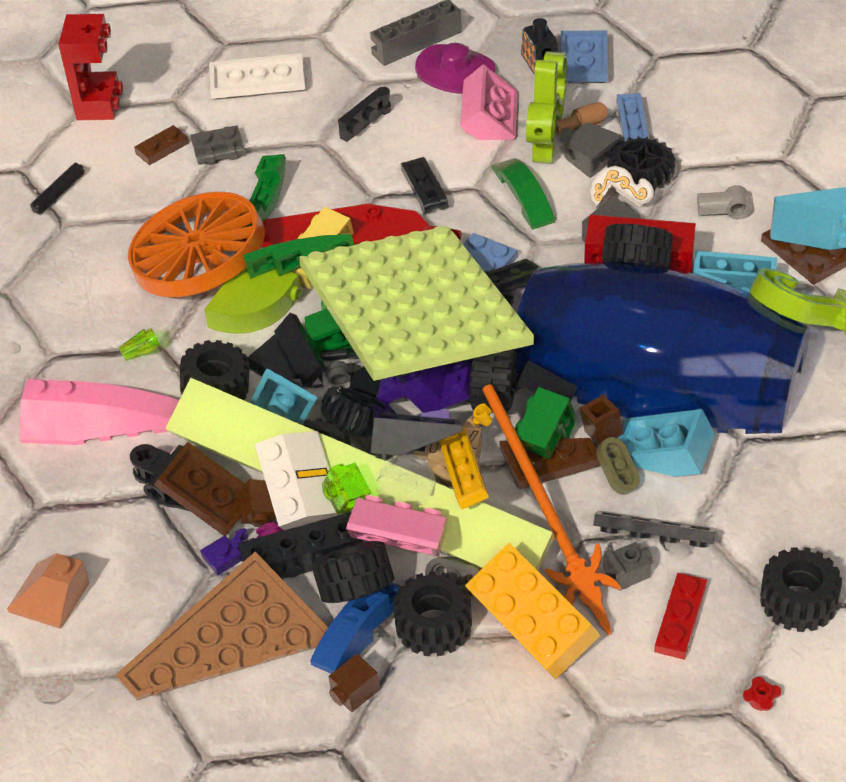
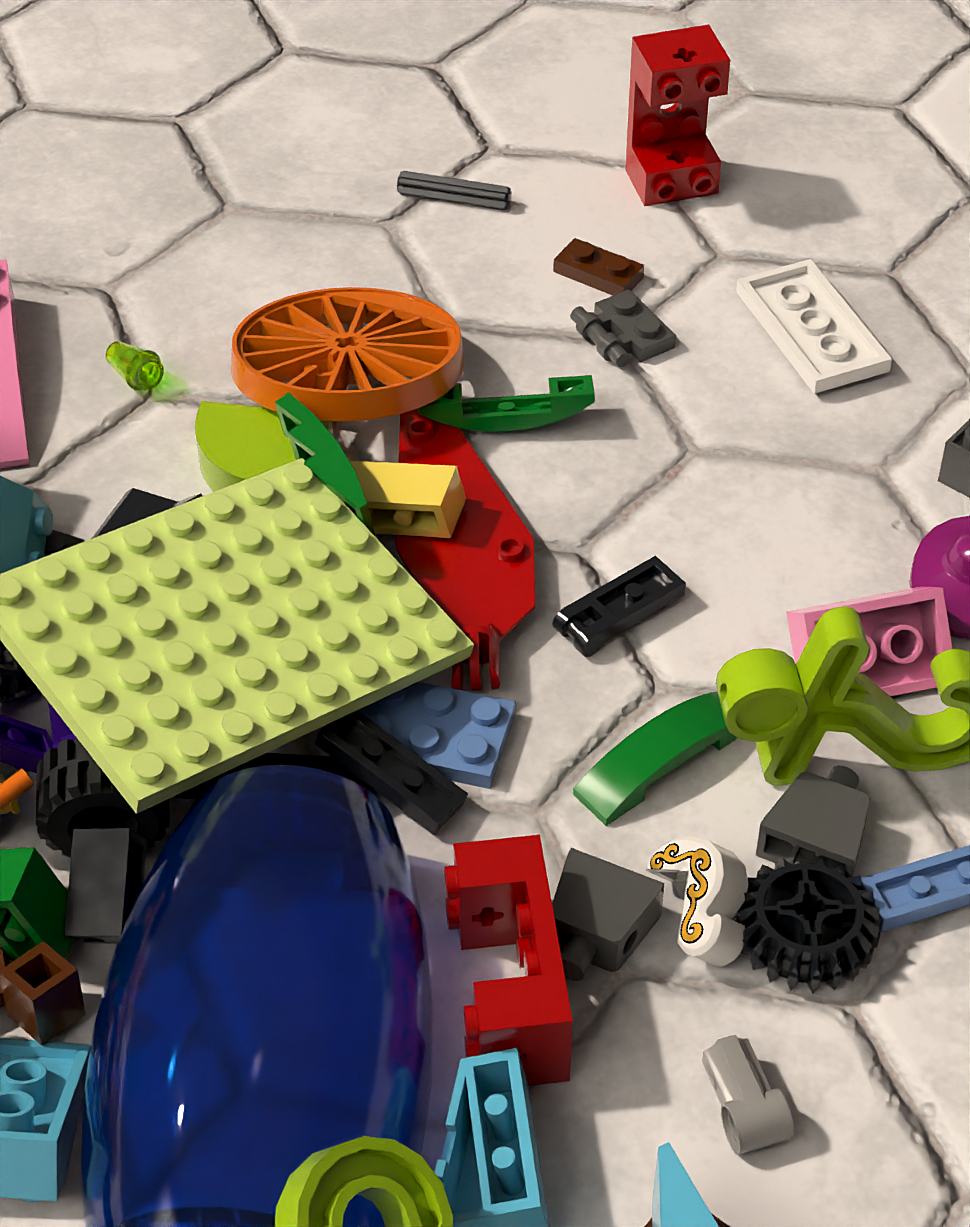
camera: 70 degrees right, 0 degrees up
(217, 366) = (62, 427): black tyre -> none
(364, 113) = (772, 478): black plate -> none
(592, 113) = (904, 796): medium nougat arm -> none
(637, 245) = (435, 921): black tyre -> none

